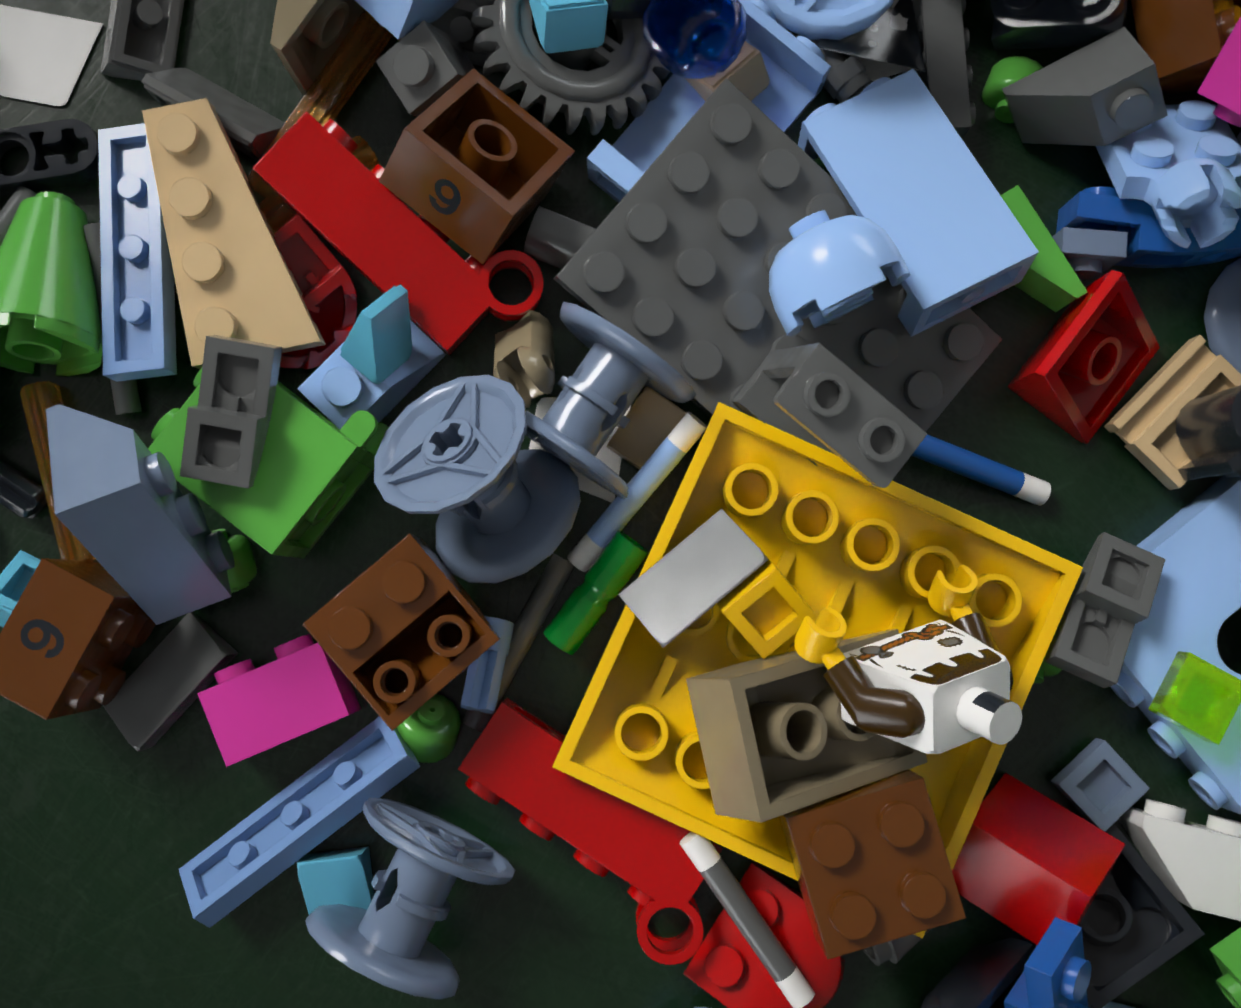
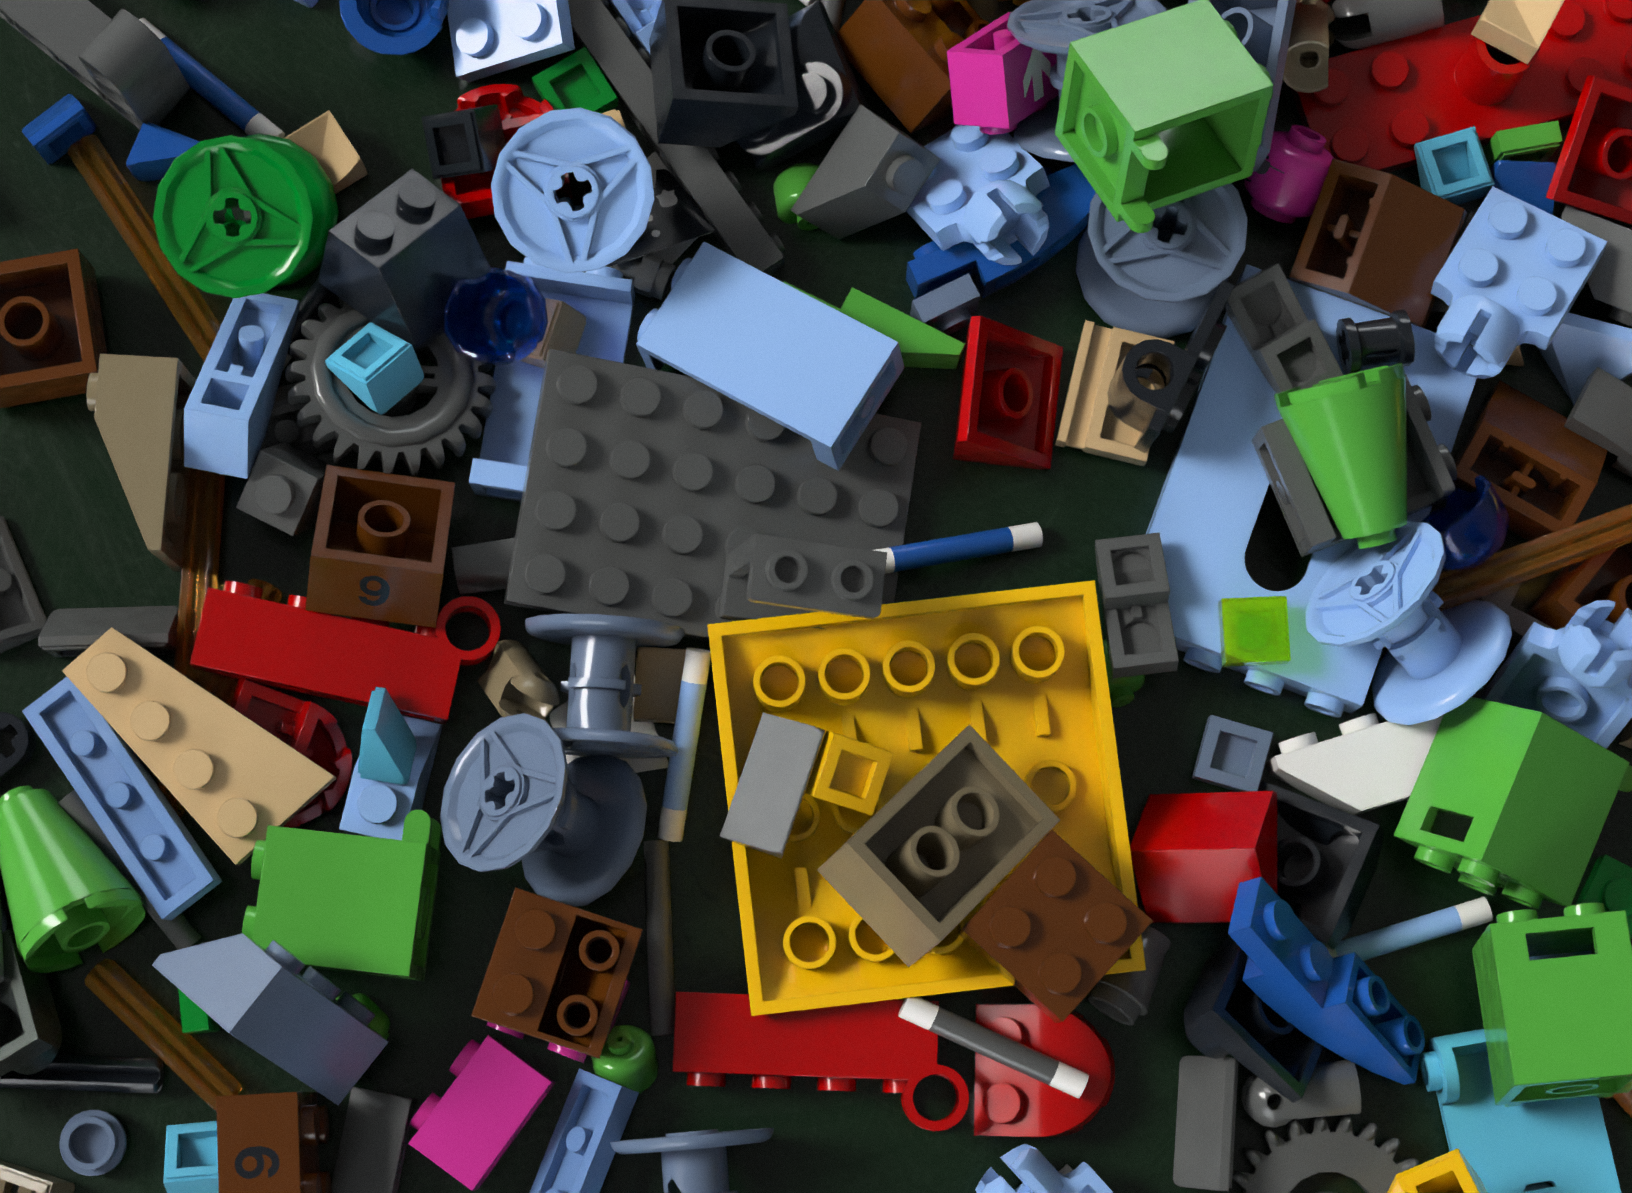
camera: 30 degrees left, 5 degrees down
(232, 413) = (305, 875): dark grey slope -> none
(486, 672) = (648, 979): medium blue piece -> none
(591, 598) = (701, 843): green piece -> none
(831, 269) = (733, 460): light blue cylinder -> none
(925, 684) = (1005, 755): torso -> none

